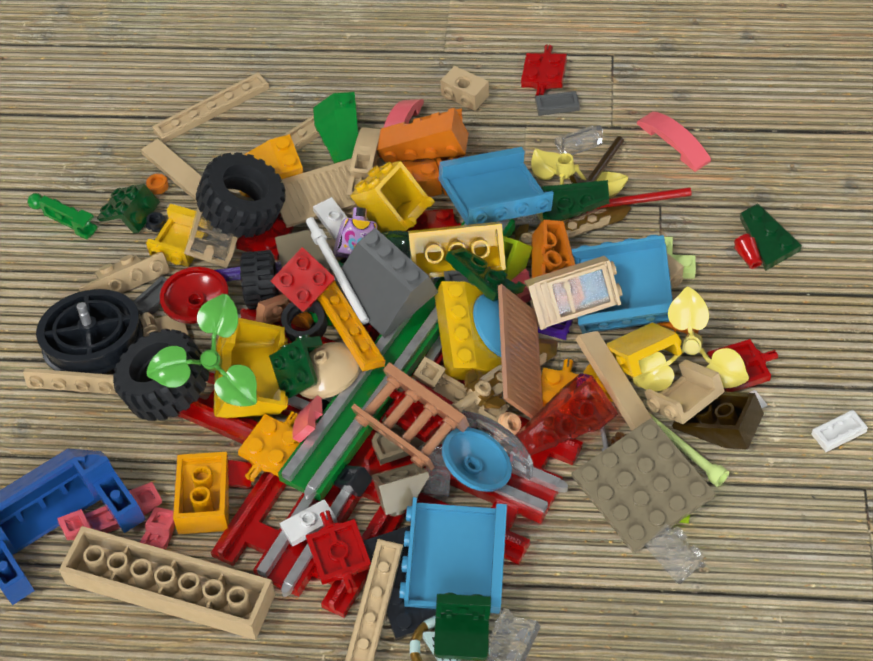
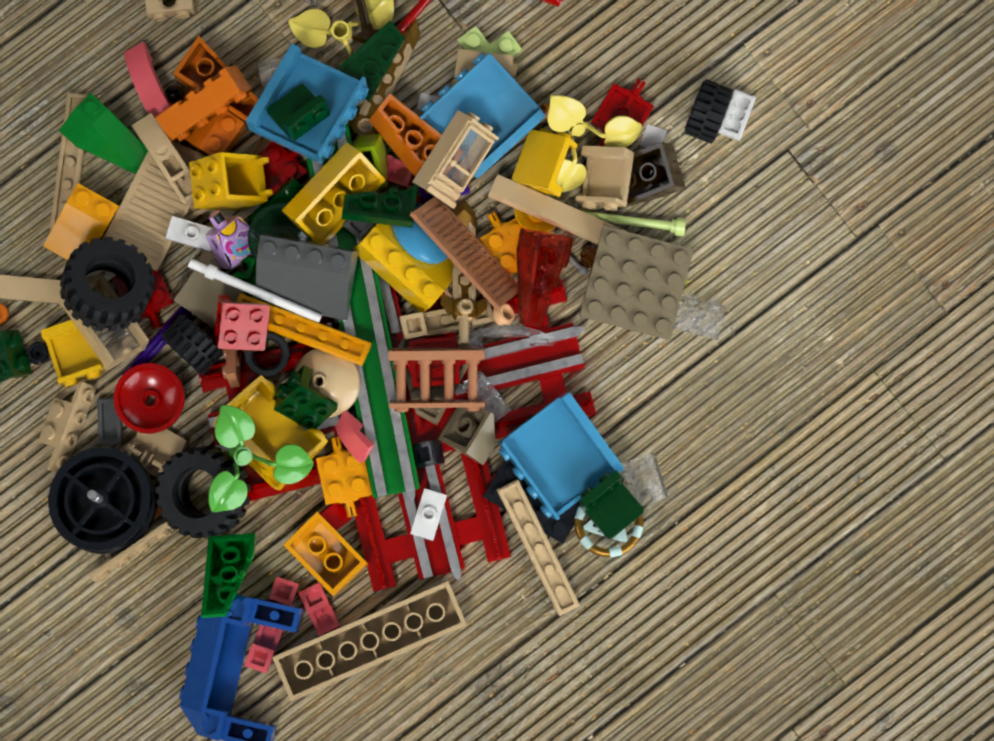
camera: 45 degrees left, 30 degrees up
(116, 434) = (225, 569): none -> green wedge
(338, 551) = (473, 519): red plate -> none
(476, 459) = (517, 361): dark azure dish -> none
(483, 183) = (298, 112): none -> dark green bracket
(815, 401) = (708, 111): none -> black tyre

